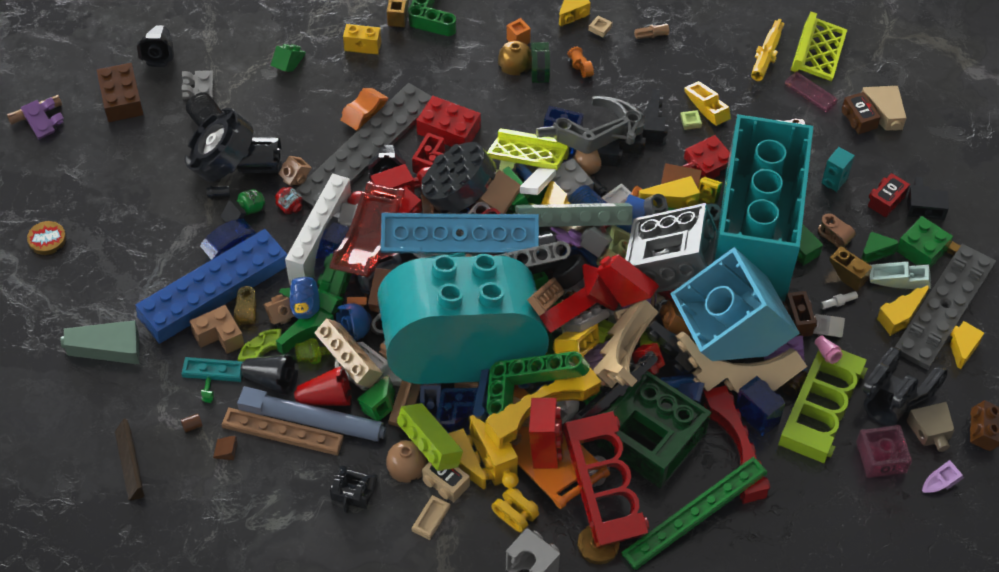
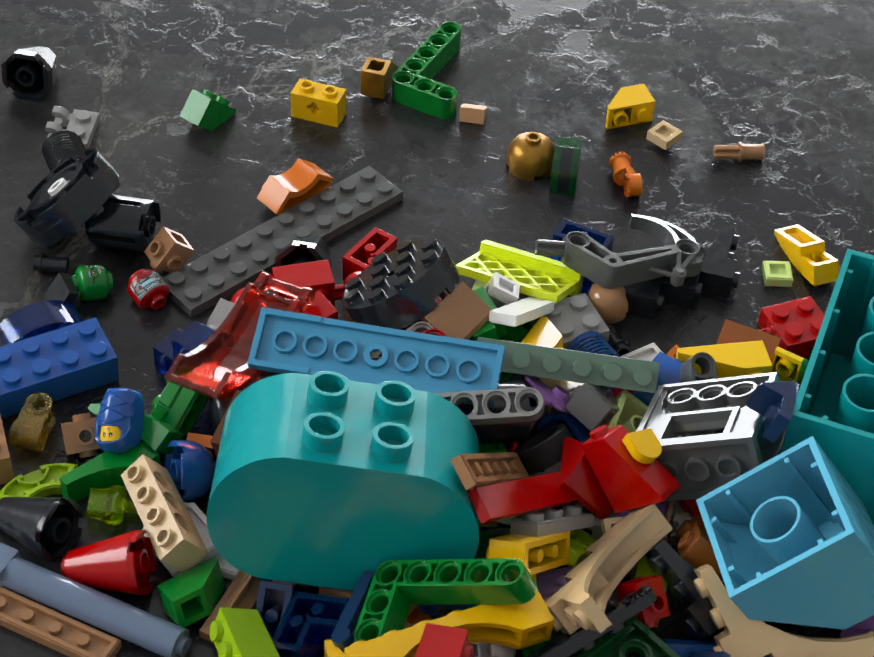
camera: 10 degrees right, 10 degrees down
(302, 255) = (139, 355): white arch -> none
(448, 121) = (412, 217): red brick -> none
(468, 28) = (472, 113): none -> light nougat slope
(519, 31) = (544, 121): orange panel -> none
(522, 167) = (502, 290): none -> white panel
(634, 265) = (643, 445): none -> yellow tile
(710, 228) = (776, 404): none -> dark blue slope

